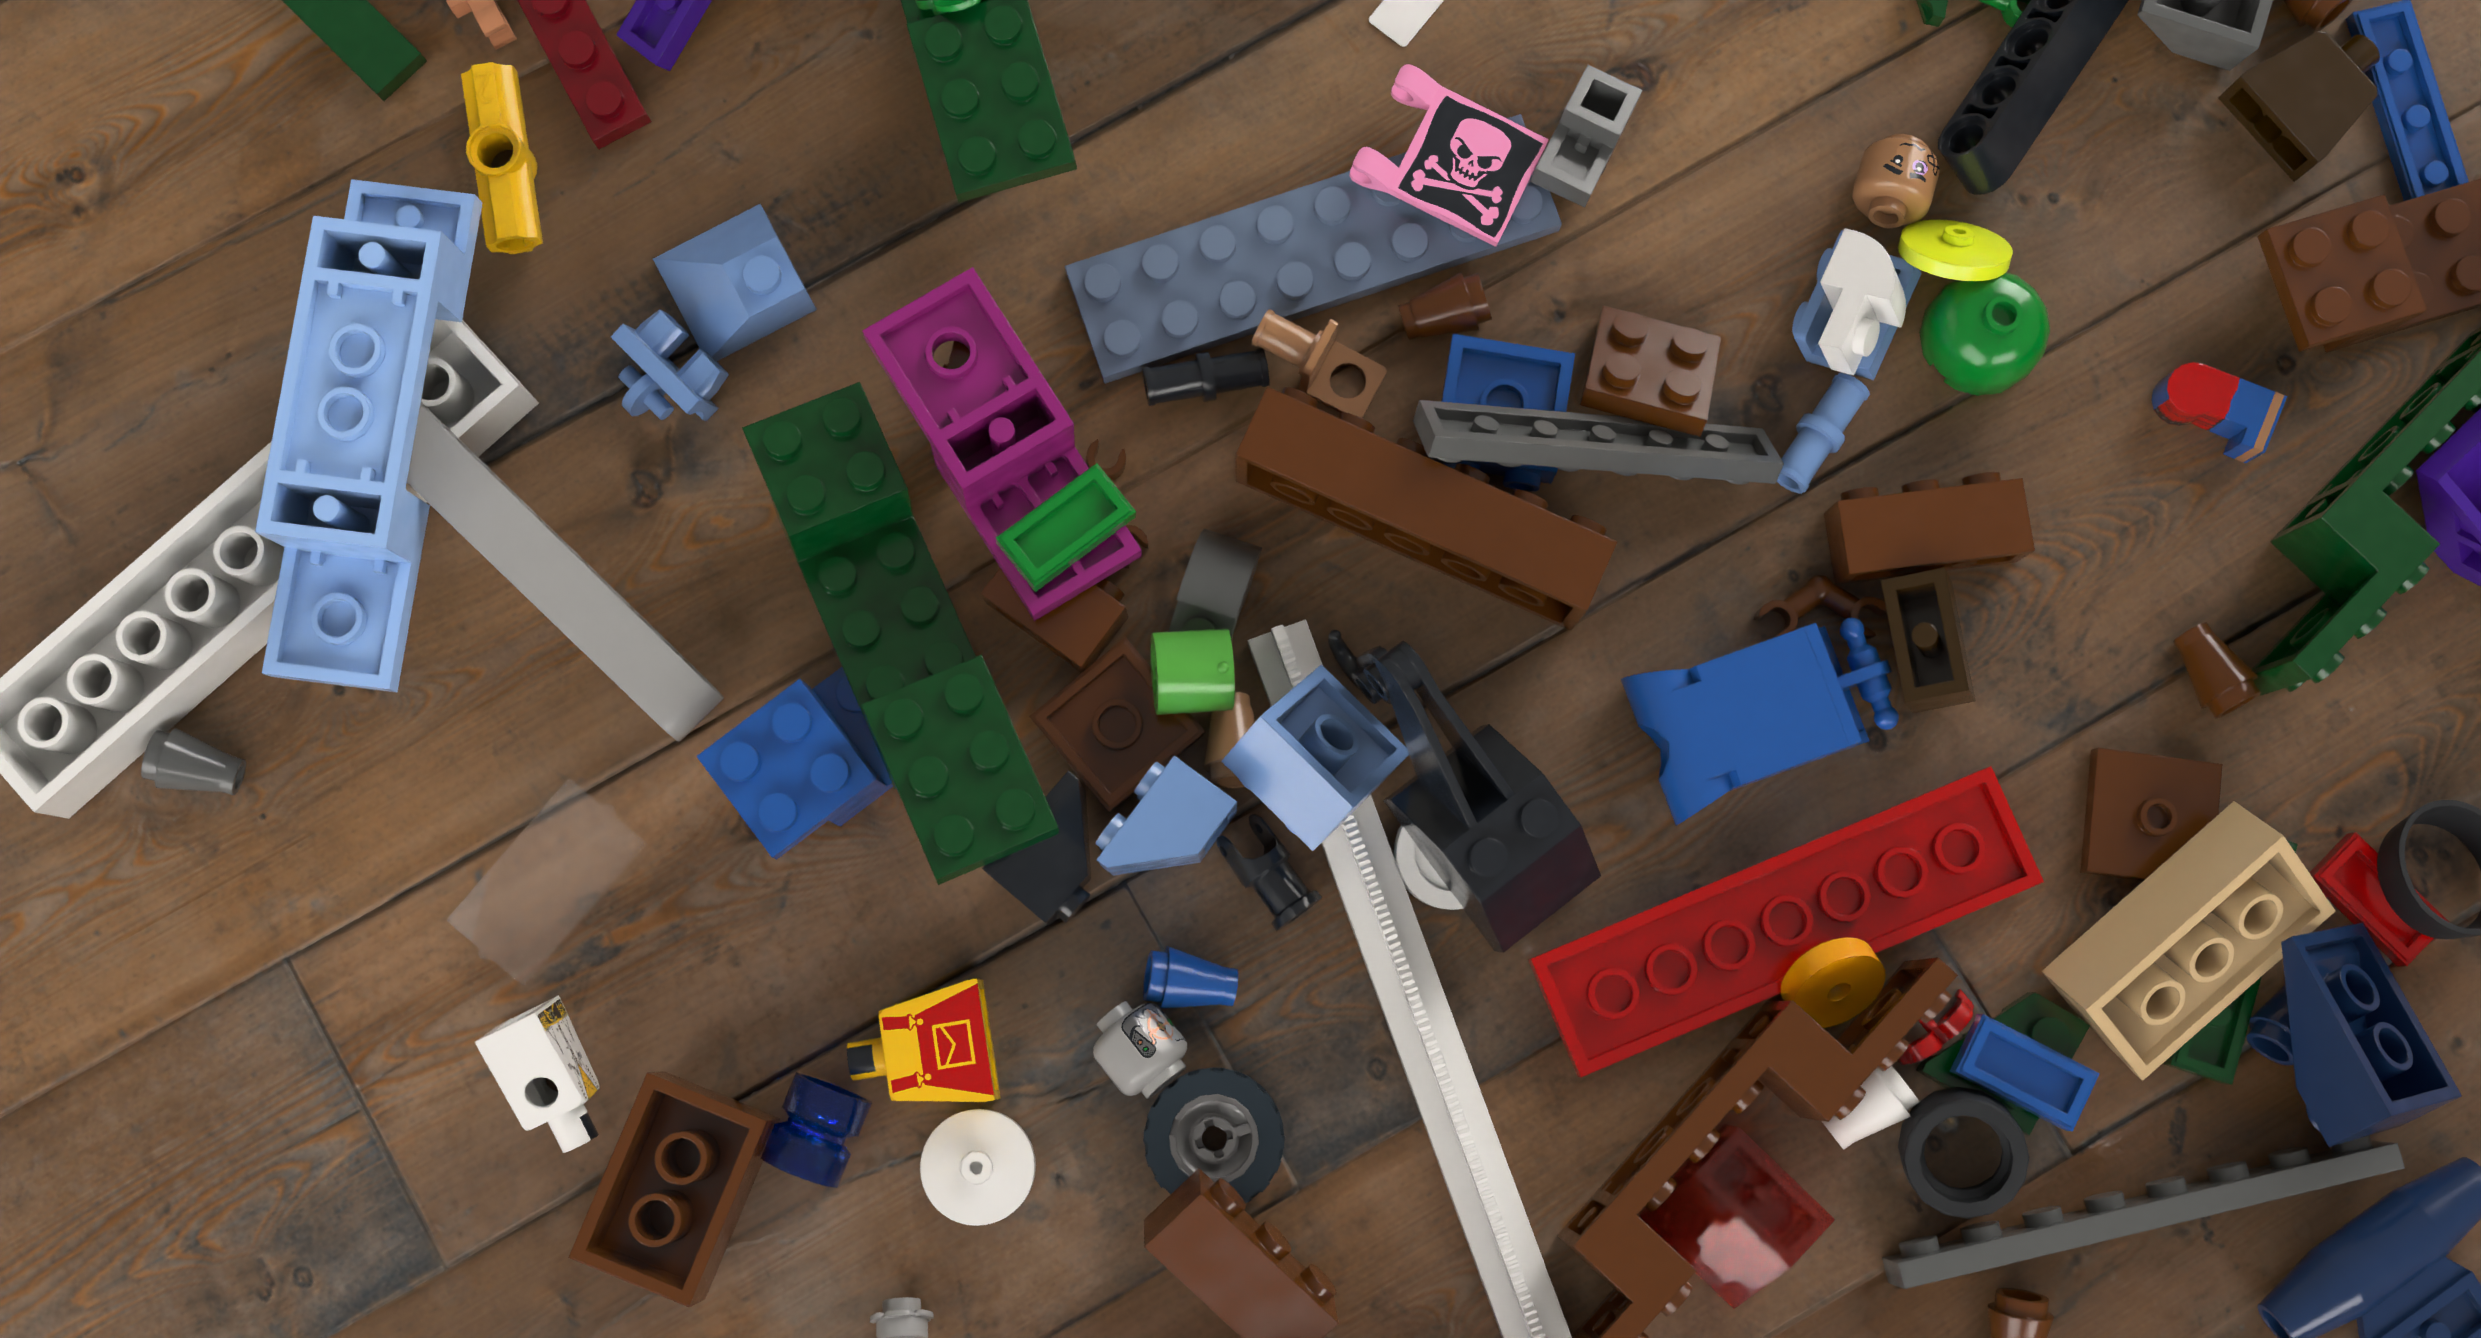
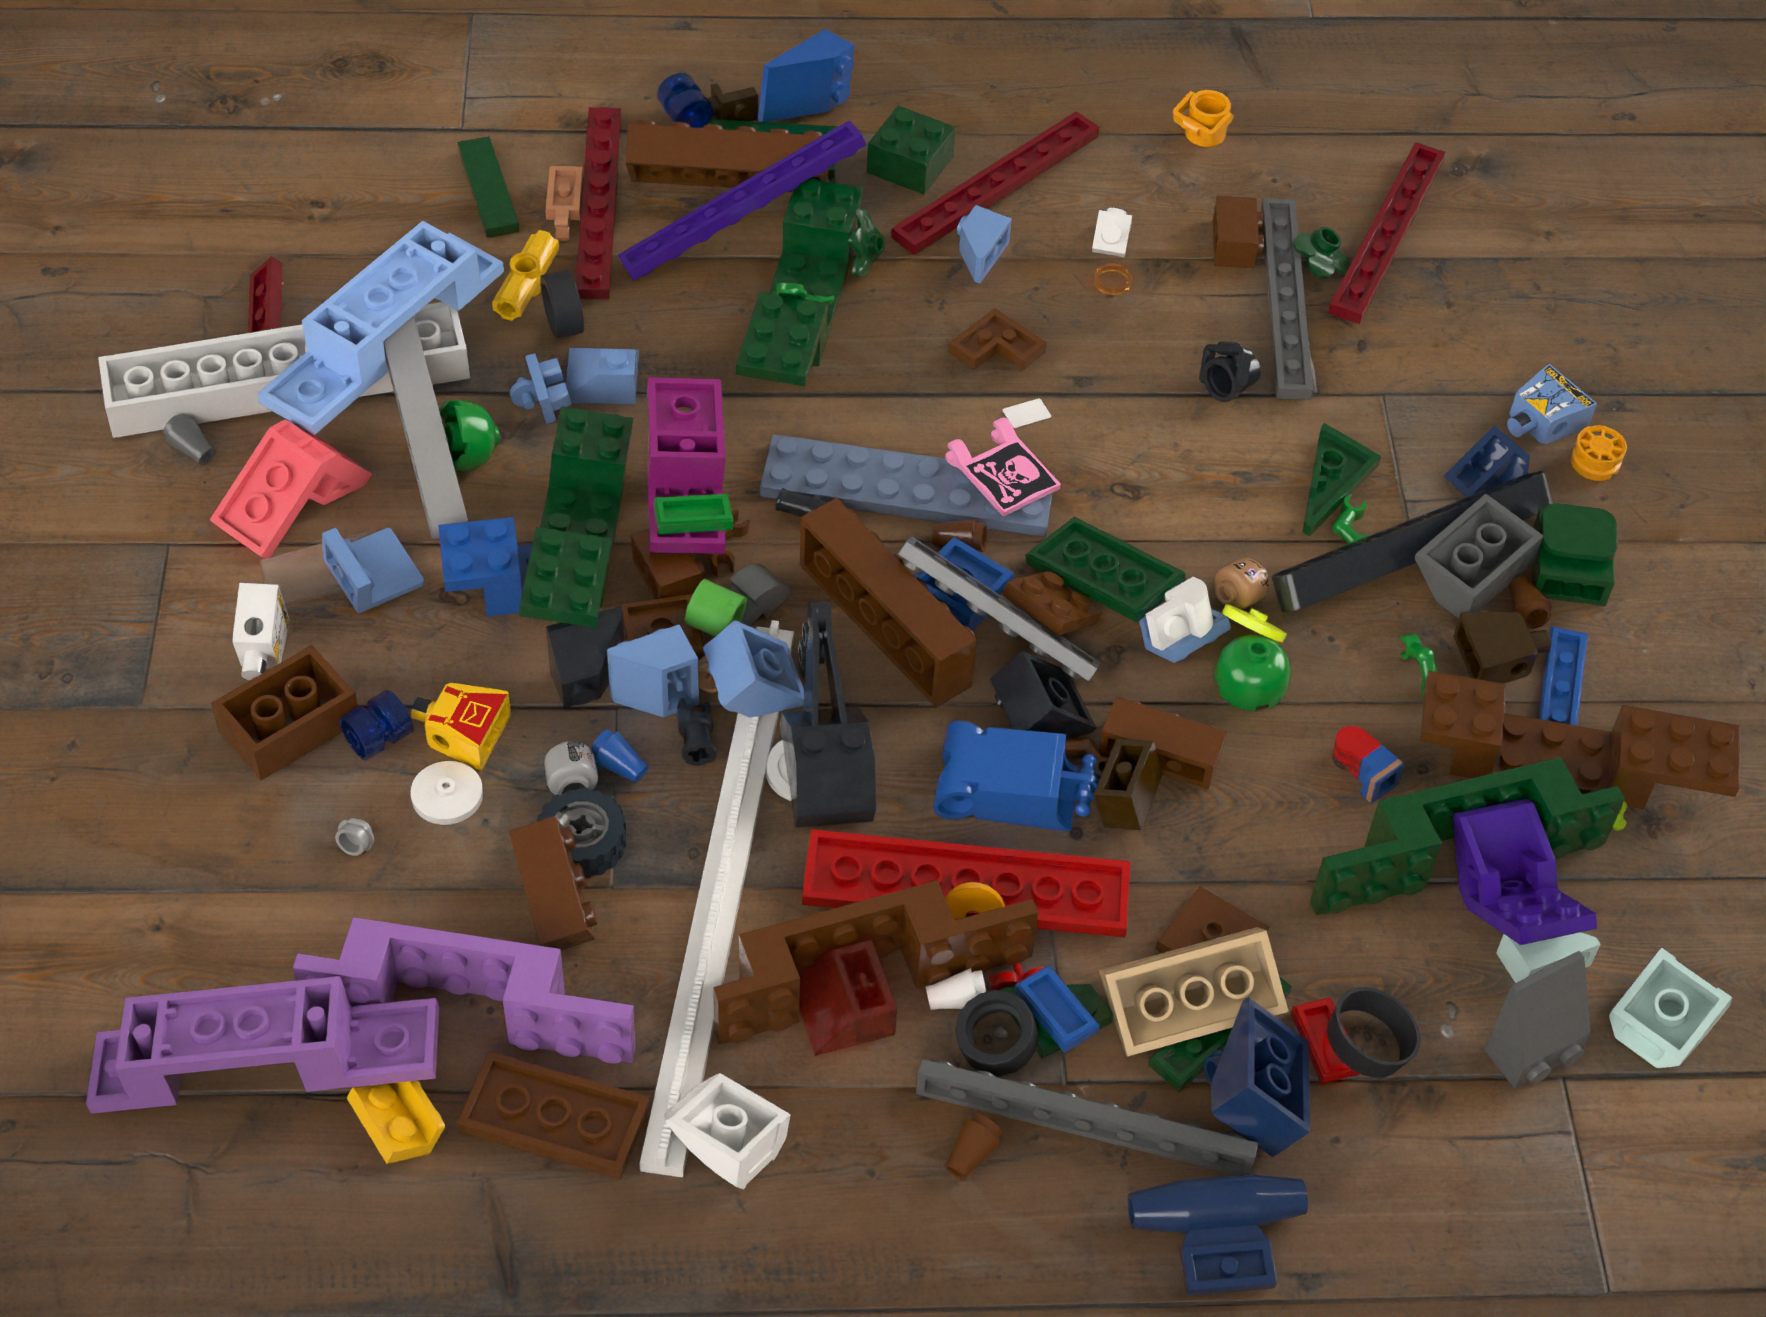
camera: 25 degrees right, 30 degrees down
(131, 440) = (265, 297): none -> dark red plate
(399, 778) = (278, 482): none -> coral bracket
(601, 197) = (562, 303): none -> black tyre
(615, 532) = (468, 433): none -> green cylinder
(628, 851) = (370, 568): none -> medium blue bracket
(1317, 359) = (876, 516): medium nougat bracket -> none
(1586, 136) = (1085, 494): dark grey brick -> none
(1694, 263) = (1105, 568): none -> dark green tile
(1726, 555) = (1041, 698): none -> black slope
(1821, 432) = (1130, 675): medium blue pin -> none
(2216, 671) = (1291, 883): reddish brown cone -> none
(2221, 180) = (1422, 654): none -> green arm

